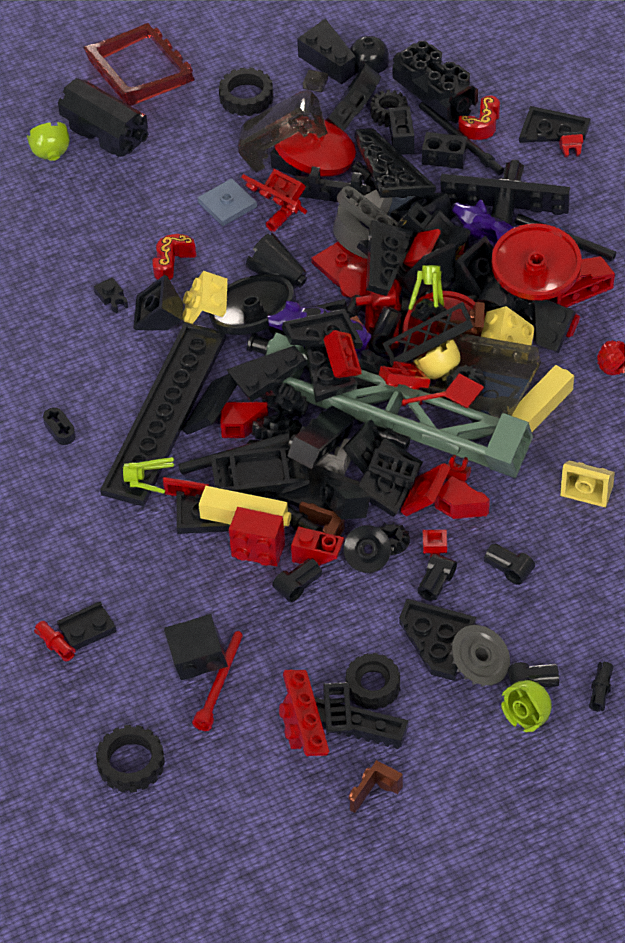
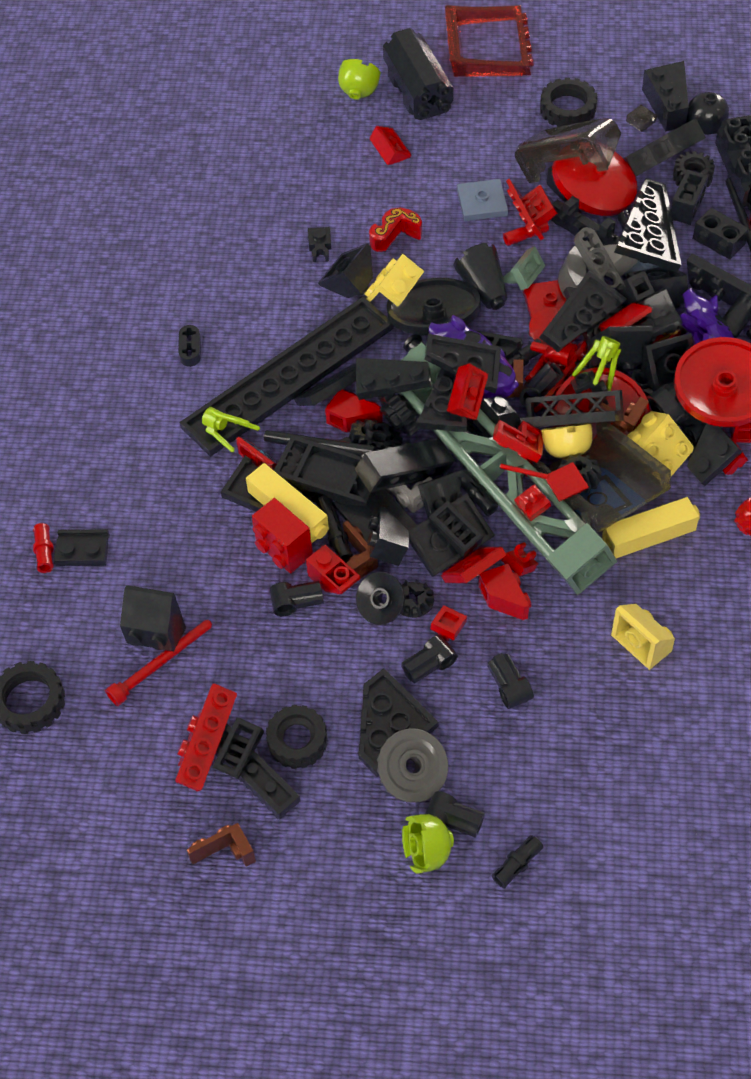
camera: 30 degrees right, 5 degrees up
(113, 188) = (389, 145): none -> red slope
(306, 243) = (525, 269): none -> sand green tile
(447, 418) = (532, 502): none -> red tile

